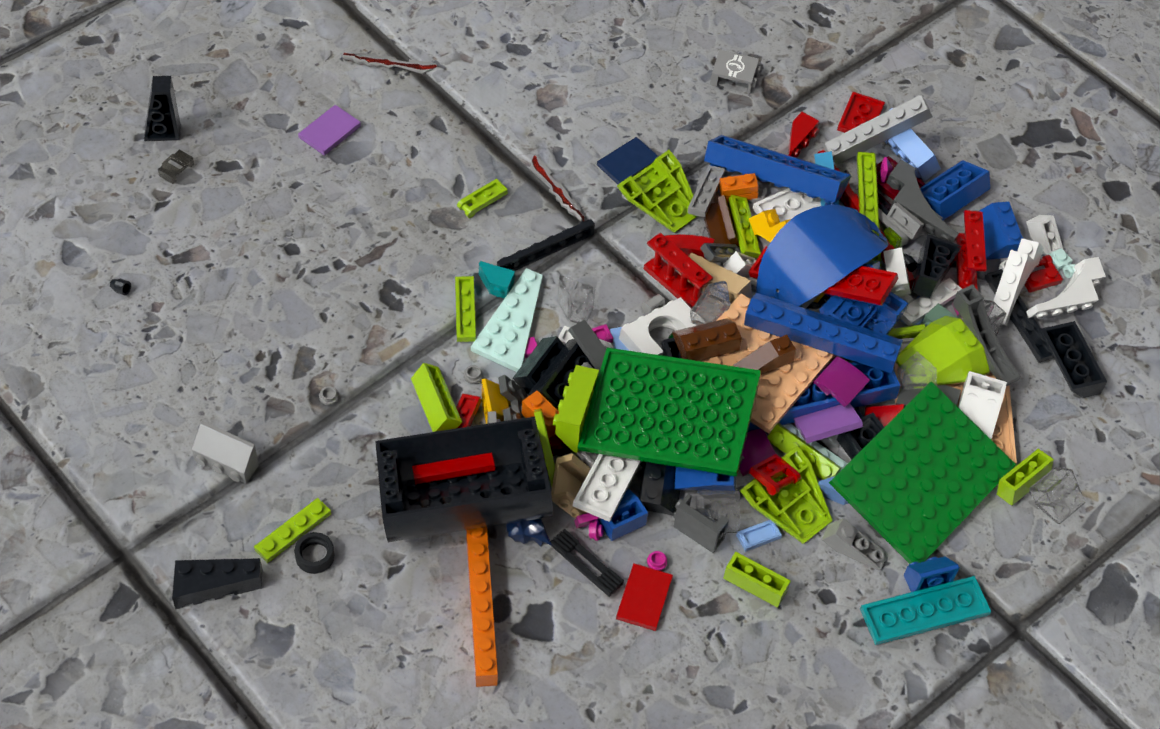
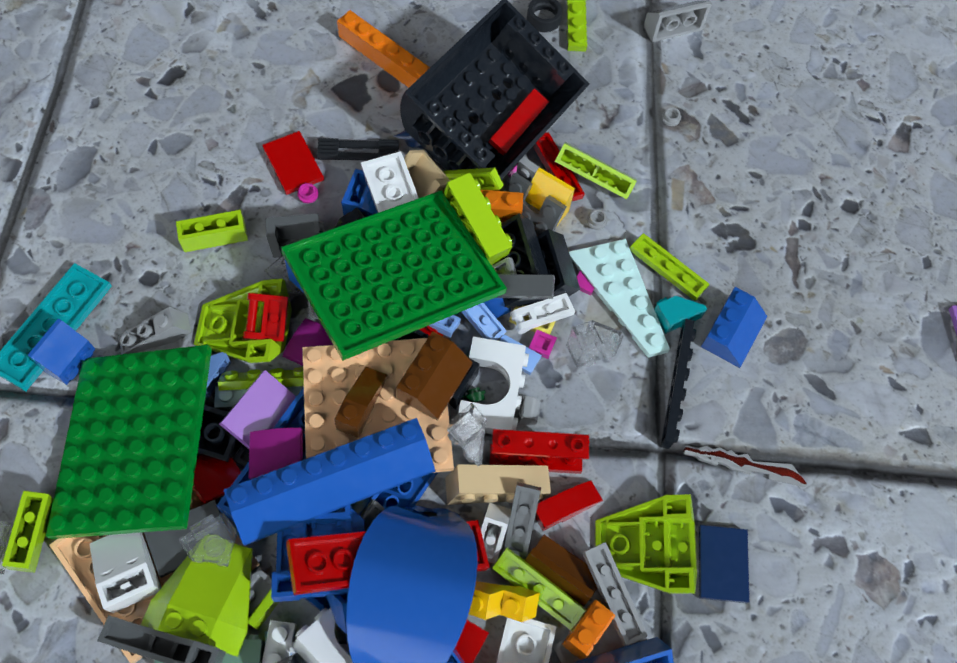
camera: 135 degrees right, 10 degrees up
(120, 286) = (902, 71): black hose -> none
(472, 248) = (735, 328): none -> blue slope
(482, 197) = (785, 386): lime plate -> none
(758, 535) = (248, 274): light blue tile -> none

